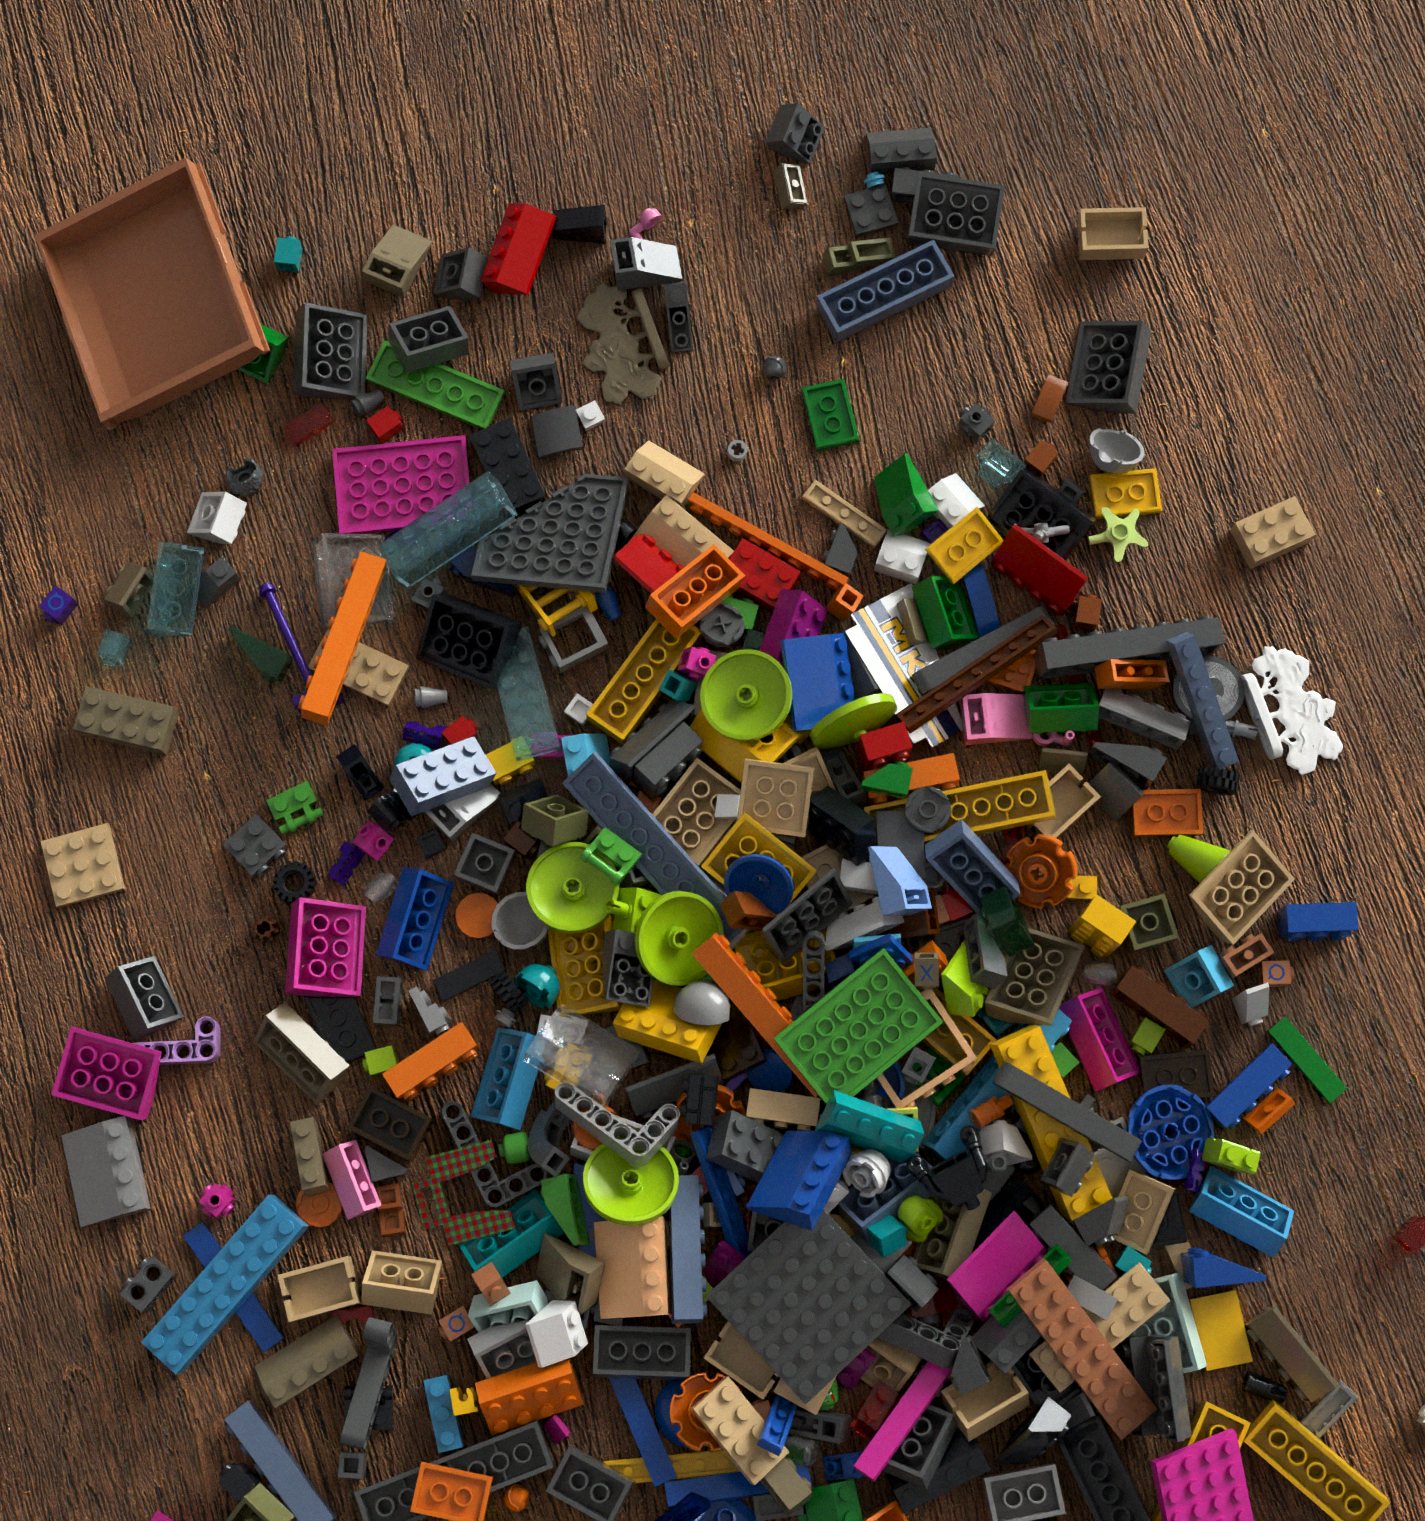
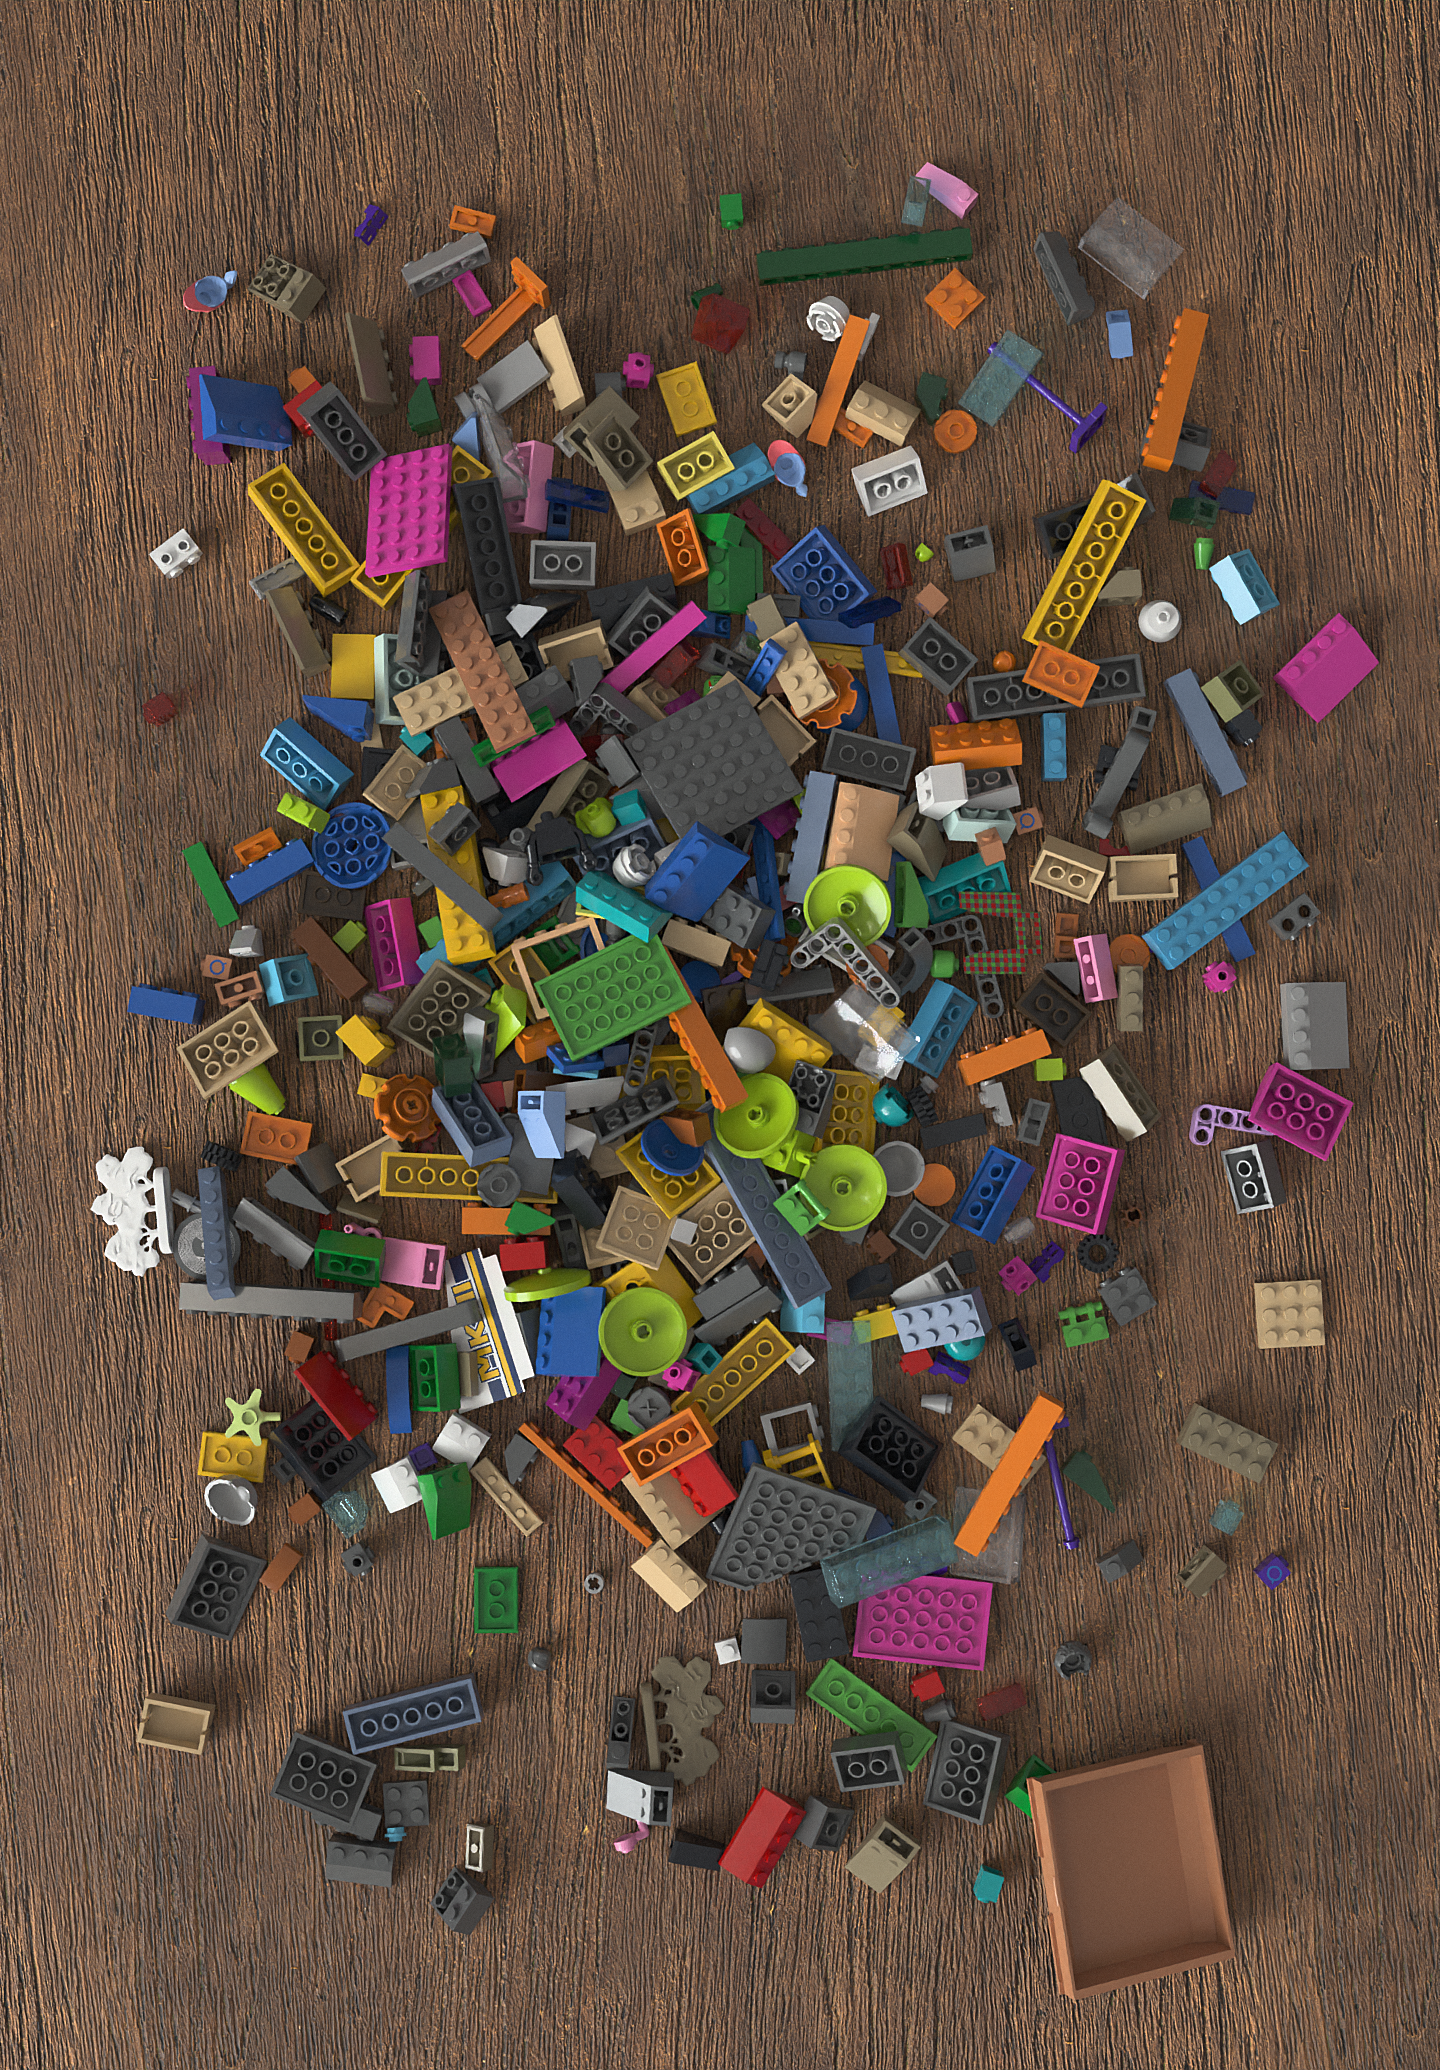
camera: 170 degrees left, 10 degrees up
(174, 590) = (1159, 1560): clear light blue slope -> none
(217, 517) = (1106, 1626): white slope -> none
(390, 811) = (998, 1298): black brick -> none
(464, 1404) = (1035, 750): yellow hinge -> none
(554, 820) = (846, 1255): olive brick -> none
(844, 602) = (527, 1406): orange brick -> none
(924, 1060) = (566, 940): dark grey brick -> none
(927, 970) = (537, 1034): dark tan brick -> none
(964, 545) = (400, 1436): yellow tile -> none
(976, 673) = (420, 1306): reddish brown plate -> none
(1043, 532) = (323, 1431): light grey piece -> none
(1092, 1297) = (462, 713): light grey slope -> none
(1131, 674) = (275, 1274): orange brick -> none
(1192, 1175) = (343, 803): dark purple piece -> none
(1272, 532) = (103, 1385): tan brick -> none

